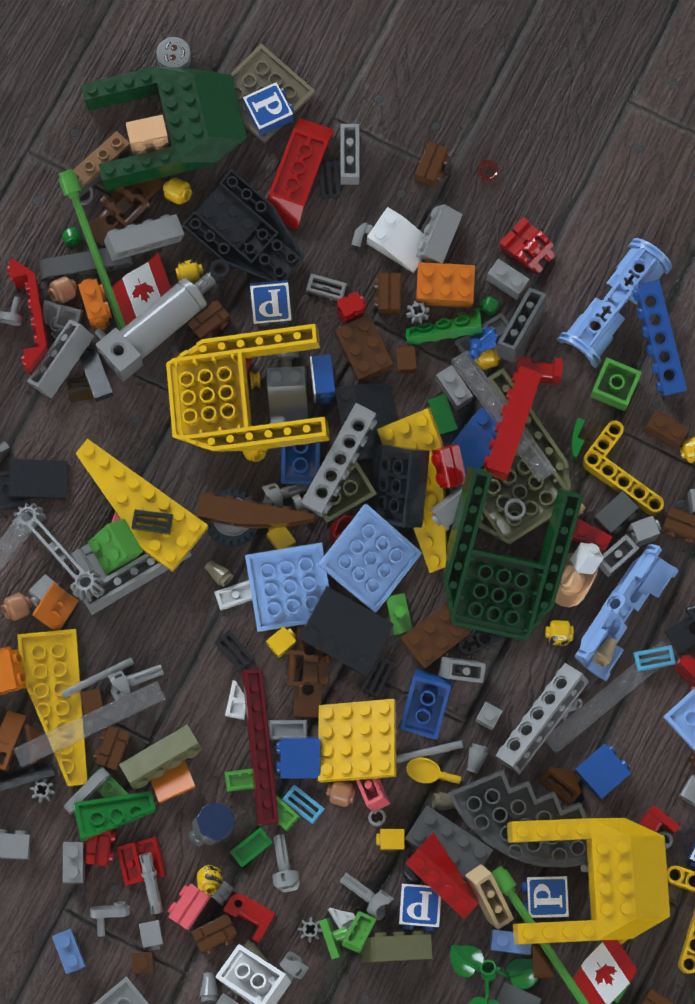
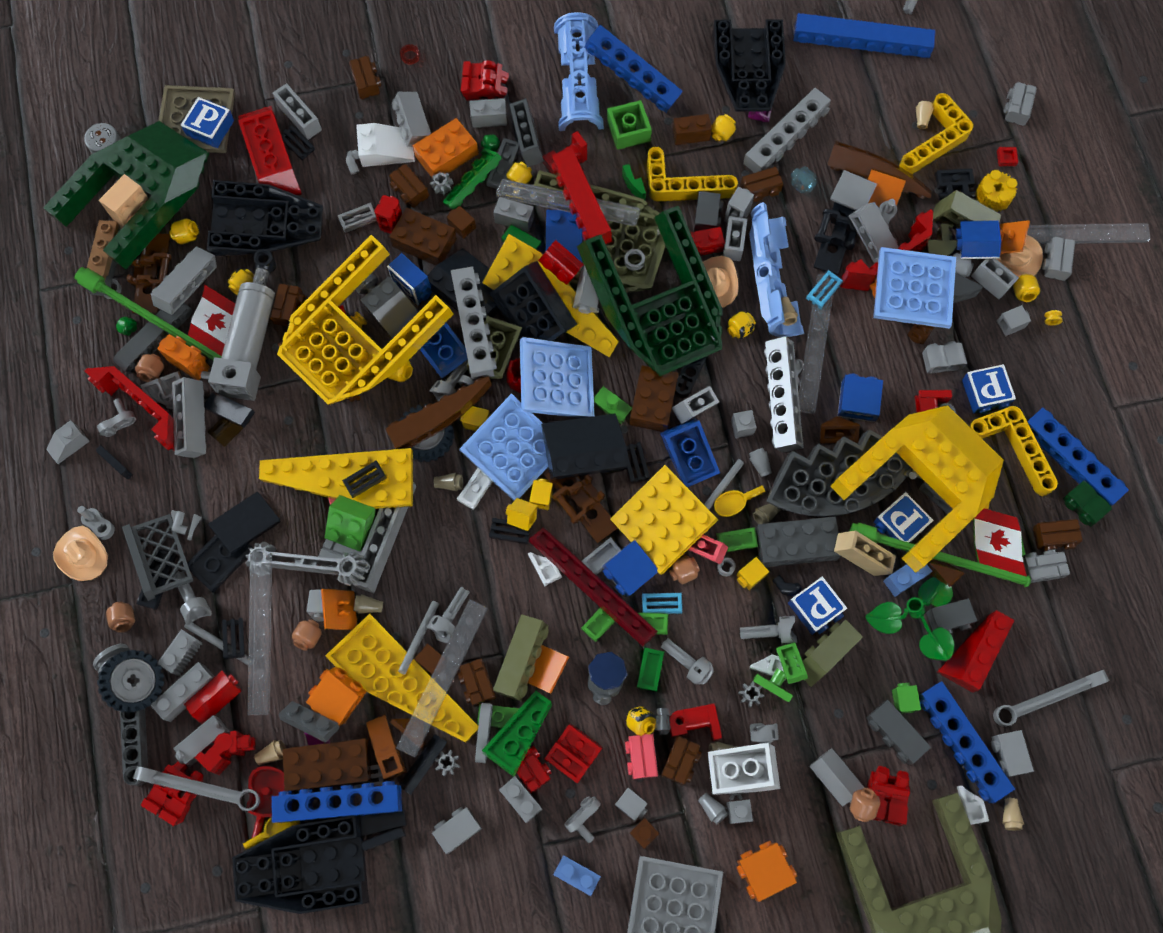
camera: 35 degrees left, 5 degrees down
(79, 620) = (366, 604): none -> dark tan cone
(149, 875) = (590, 758): light grey pin -> none
(252, 645) = (521, 514): none -> yellow brick
(270, 302) = (323, 254): piece -> none
(404, 804) = (739, 539): none -> bright green plate
(442, 875) = (809, 564): red wedge -> none
(482, 342) = (508, 163): blue arm -> none
(587, 558) = (716, 253): white brick -> none

